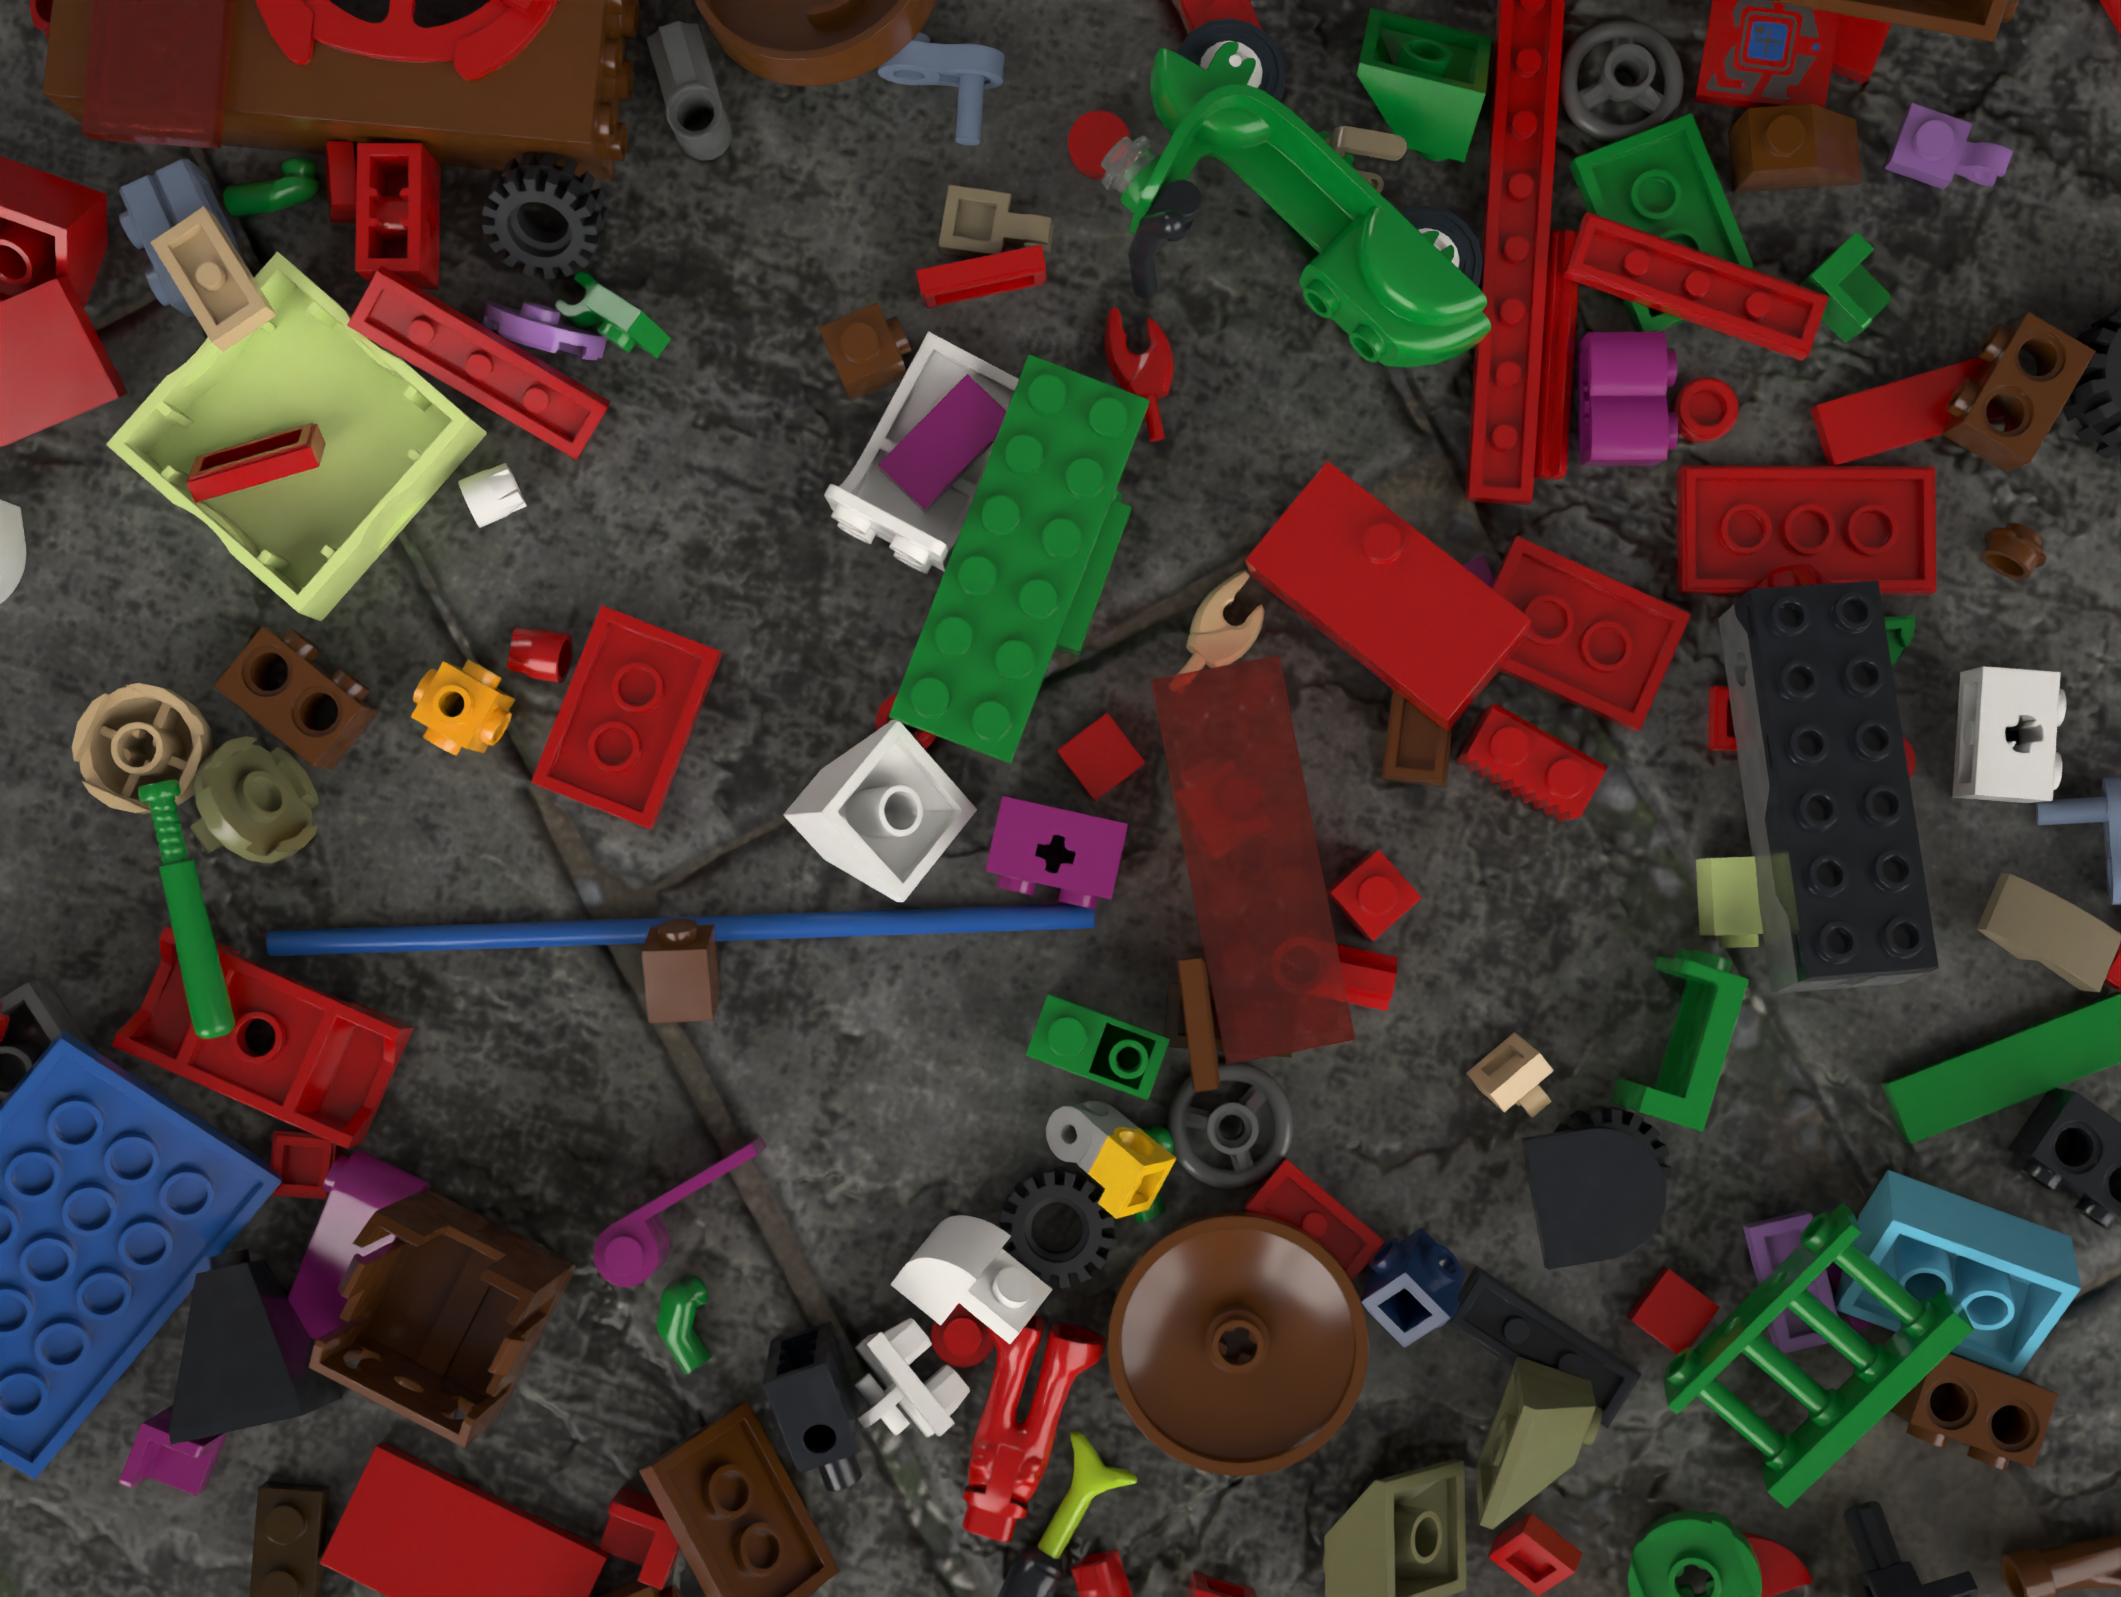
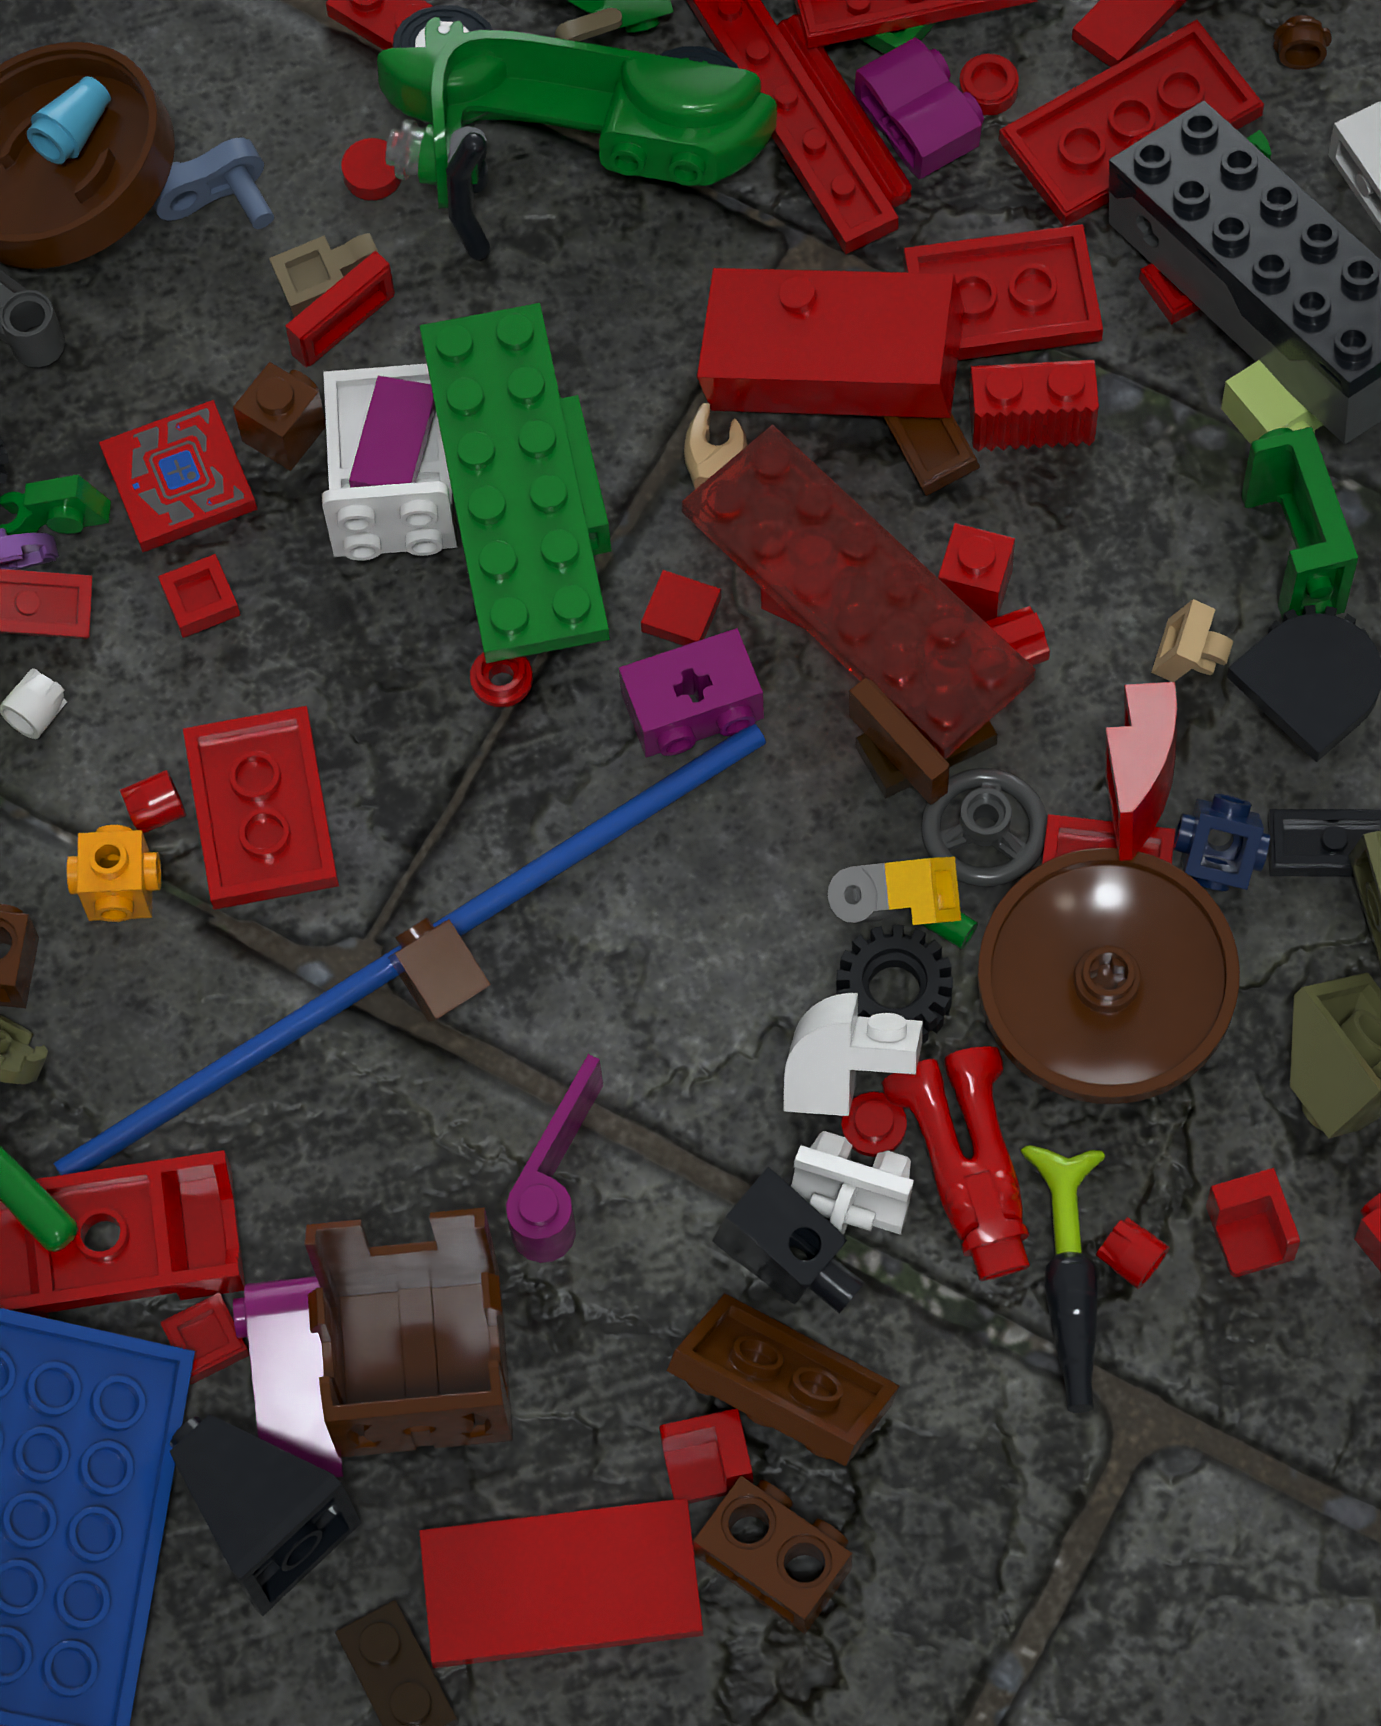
camera: 30 degrees left, 20 degrees down
(179, 1465) = (241, 1644): magenta panel -> none
(676, 1322) = (618, 1266): green arm -> none
(693, 480) = (199, 595): none -> red plate
(746, 347) = (178, 476): none -> red tile
(882, 811) = (524, 747): white slope -> none
(1097, 1046) = (826, 818): green slope -> none
(1141, 374) = (523, 292): red hand -> none
(1392, 1173) = (1141, 763): none -> slope

